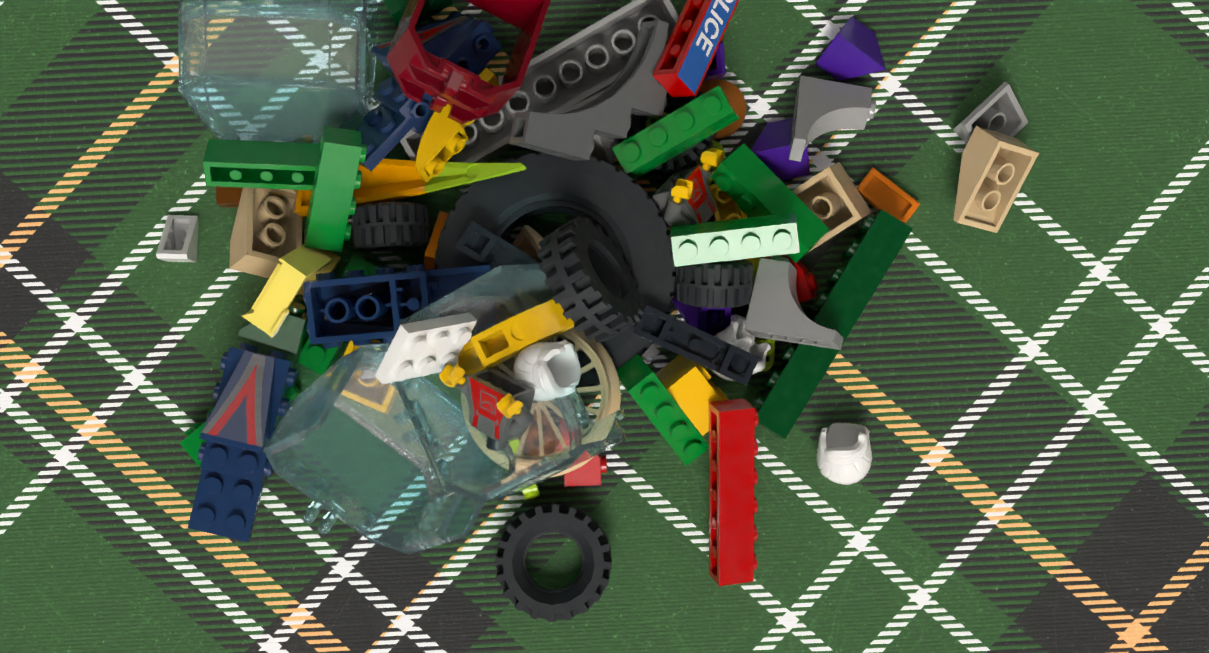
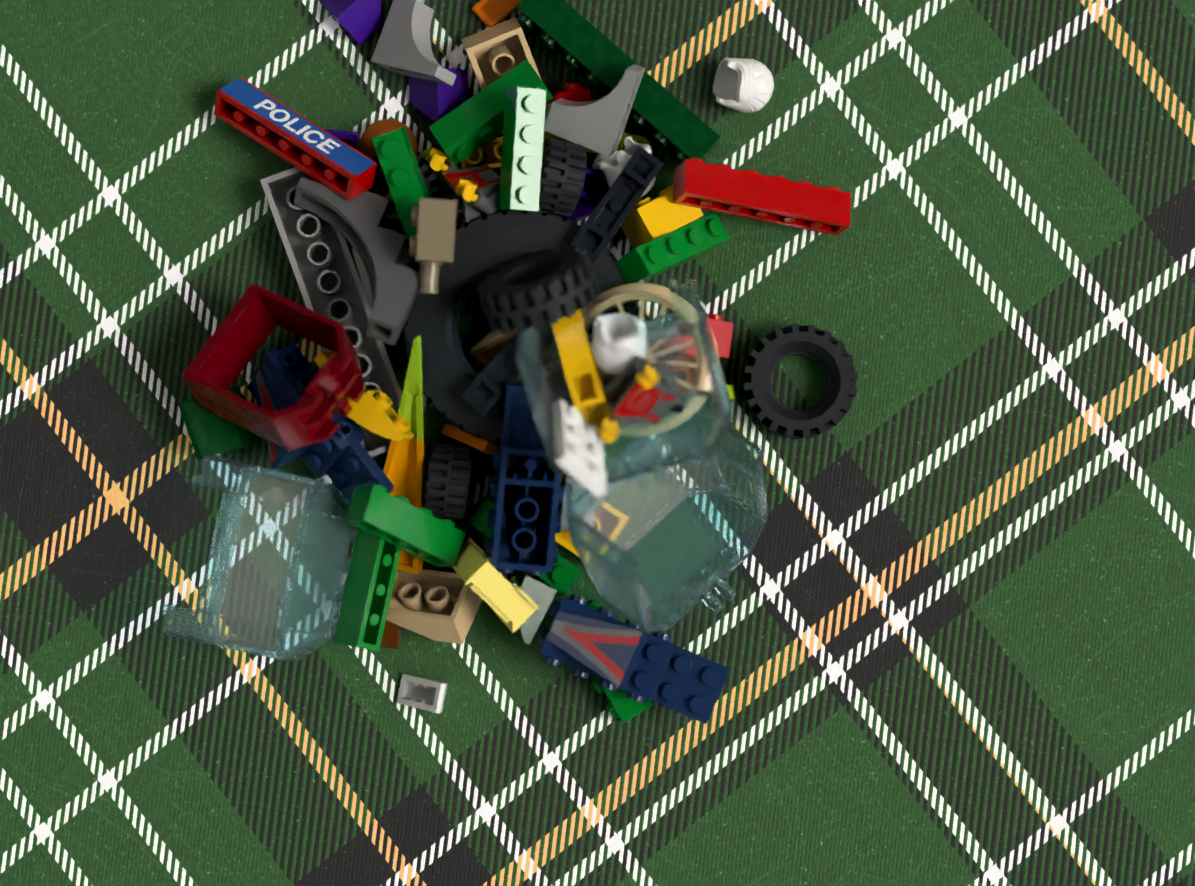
camera: 80 degrees left, 0 degrees up
(624, 164) = (434, 239): none -> dark tan brick

